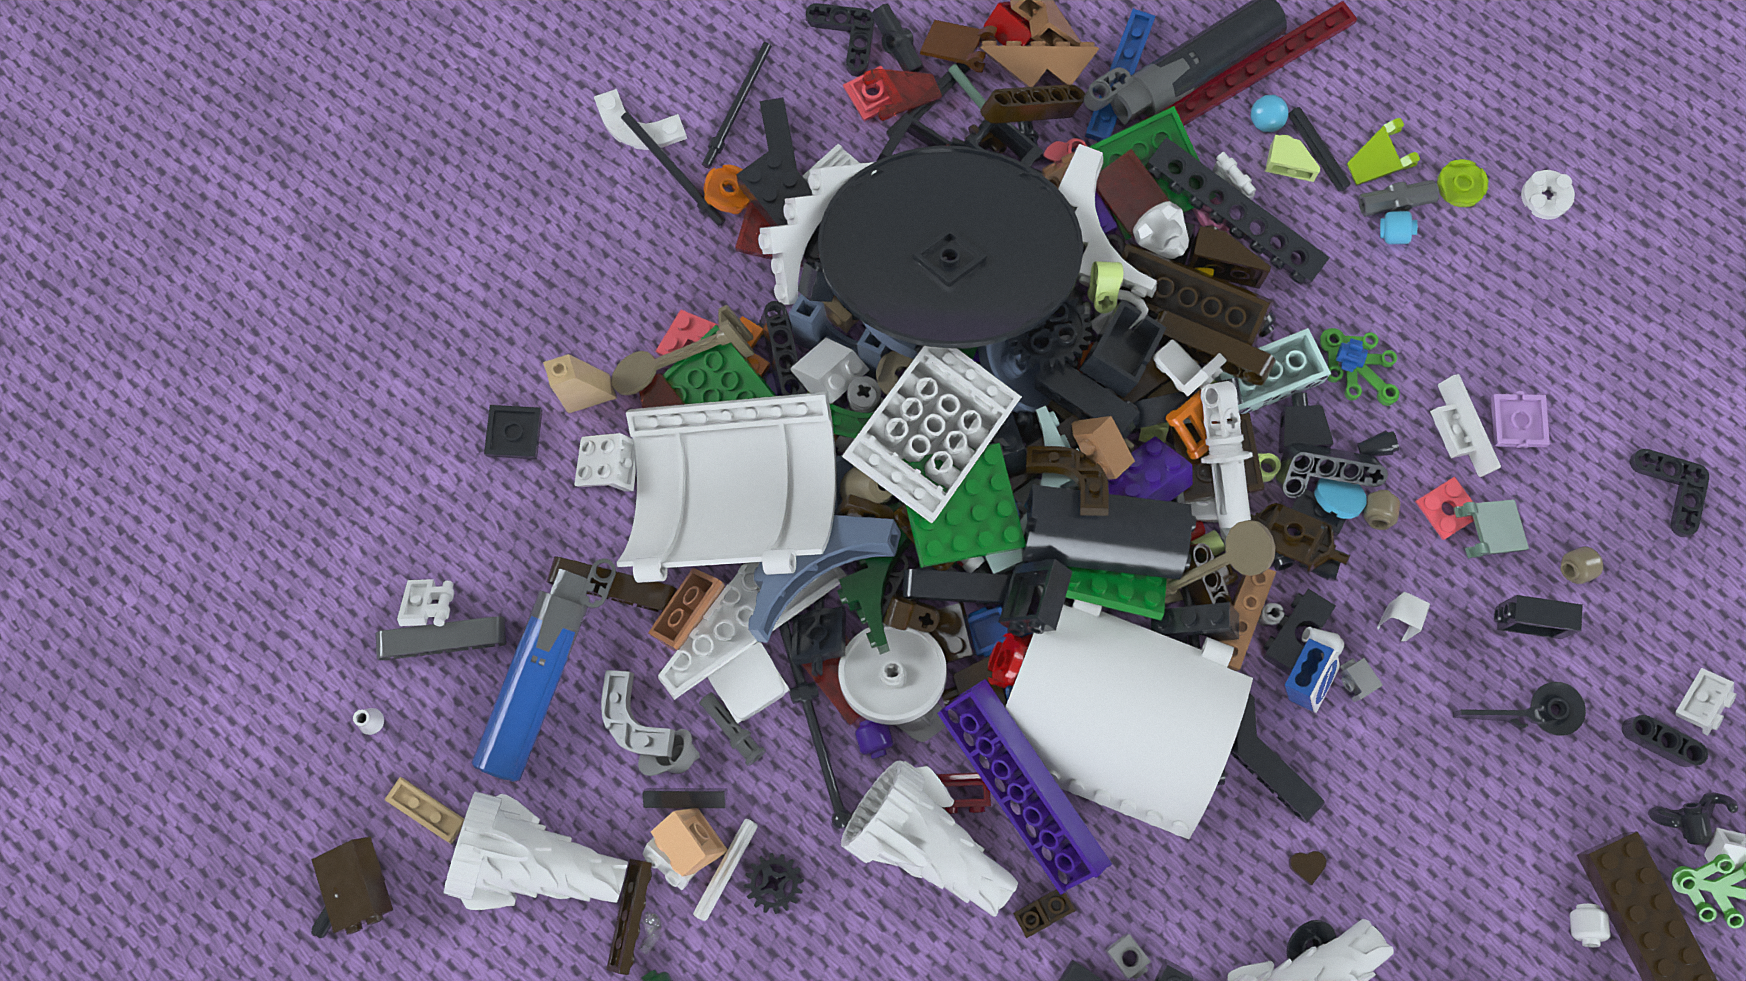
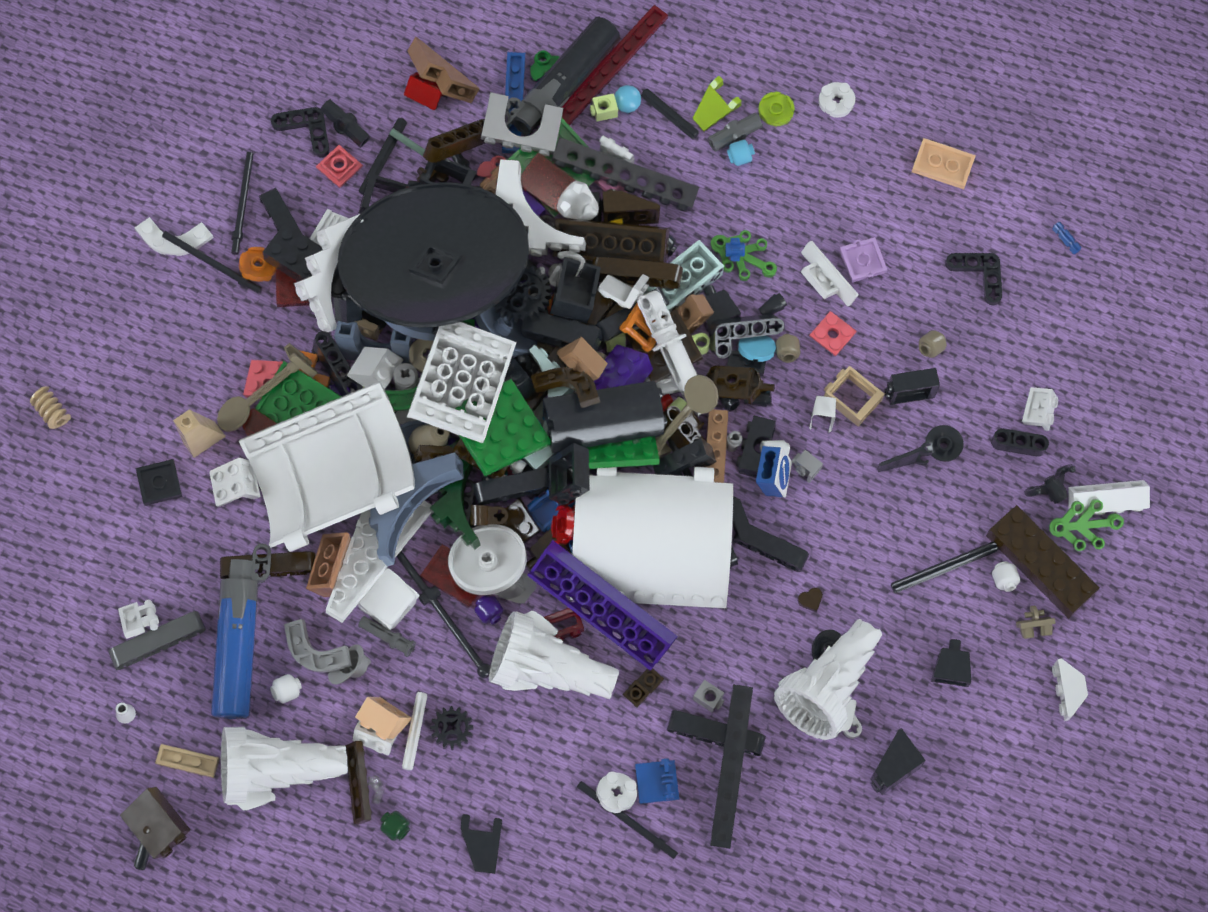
camera: 25 degrees left, 5 degrees down
(411, 294) = (48, 409): none -> tan piece
(579, 757) = (285, 688): none -> white head
(684, 797) = (371, 690): black slope -> none
(818, 636) = (427, 552): black plate -> none
(904, 90) = (362, 157): clear red flag -> none
(957, 43) = (390, 112): reddish brown flag -> none
(1030, 62) = (446, 112): medium nougat slope -> none
(1086, 106) = (542, 140): none -> light grey arch
(1105, 285) = (549, 251): yellowish green piece -> none
(1168, 40) = (539, 68): none -> green plate
(1243, 109) = (604, 101): none -> yellowish green brick
(1272, 422) = (694, 311): none -> medium nougat brick
(1291, 159) = (652, 126): yellowish green slope -> none
(1469, 590) = (875, 394): none -> tan window
(1497, 527) = (868, 335): sand green flag -> none
(1506, 881) = (944, 567): none -> black axle
(1669, 322) = (943, 163): none -> light nougat plate

